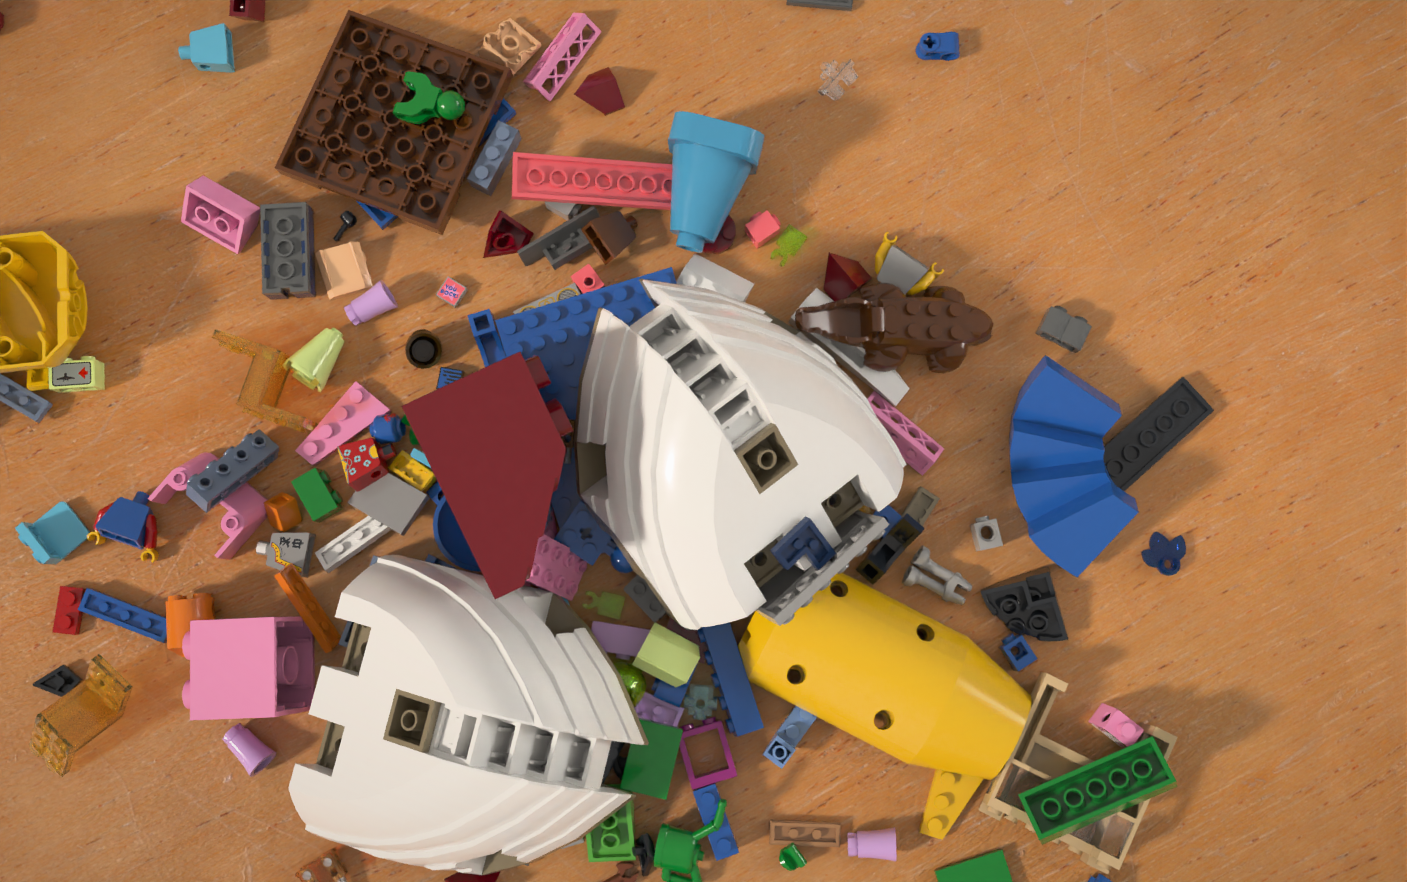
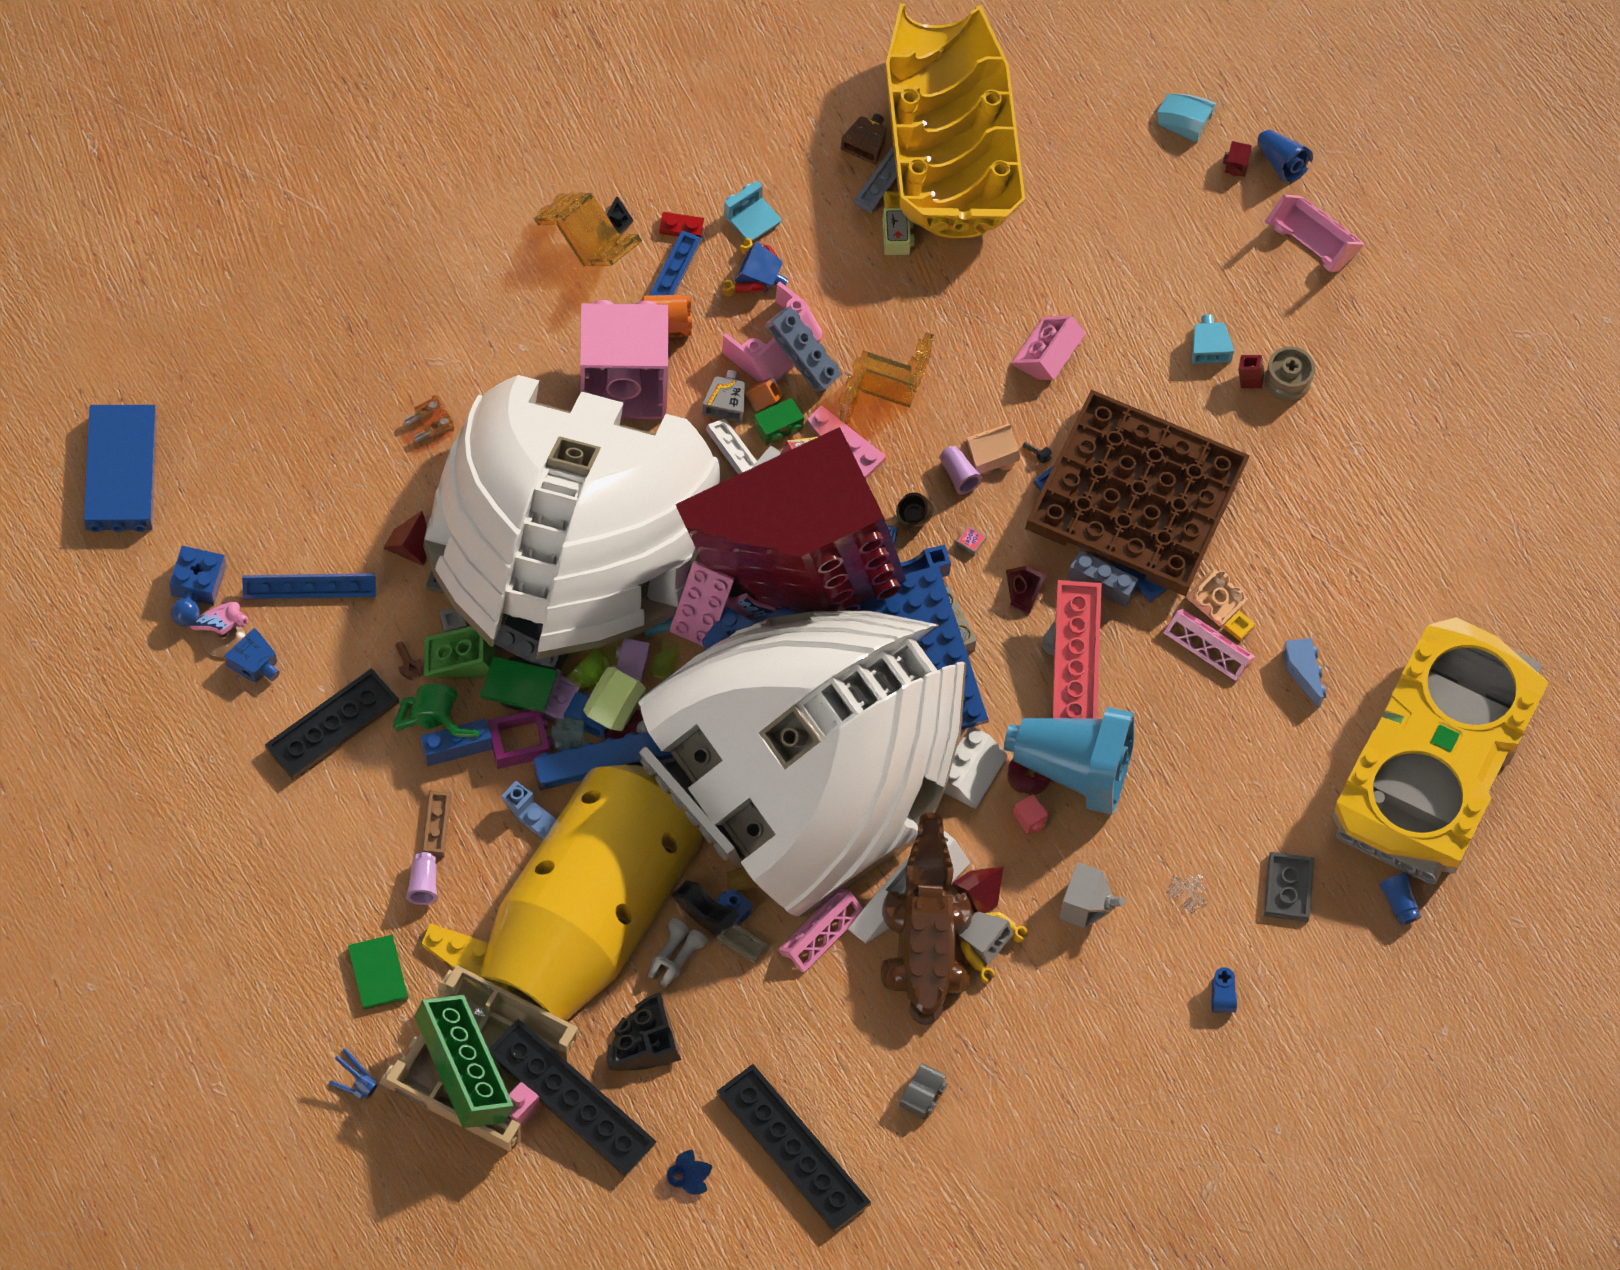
camera: 90 degrees right, 20 degrees down
(248, 749) = (548, 362): lavender plant -> none
(287, 250) = (1011, 400): dark grey piece -> none
(308, 607) = (677, 406): orange tile -> none
(316, 359) = (907, 422): yellowish green cone -> none
(428, 101) = (1152, 514): green piece -> none
(541, 26) = (1239, 626): none -> yellow plate
(561, 243) = (1019, 637): dark grey bracket -> none
(587, 280) = (980, 655): coral brick -> none
(601, 92) = (1172, 676): dark red slope -> none
(610, 234) = (1024, 675): reddish brown torso -> none
(646, 851) = (434, 678): black piece -> none
(789, 242) = (1016, 842): clear neon green plate -> none
(791, 857) = (415, 806): green plate -> none
(800, 541) = (716, 779): dark blue plate -> none
(854, 171) = (1088, 897): none -> light grey piece
(994, 539) = (714, 1010): light grey brick -> none
(1024, 656) = (598, 1014): blue brick -> none
(1061, 467) = (791, 1066): blue piece -> none
(1104, 676) = (572, 1097): none -> black plate

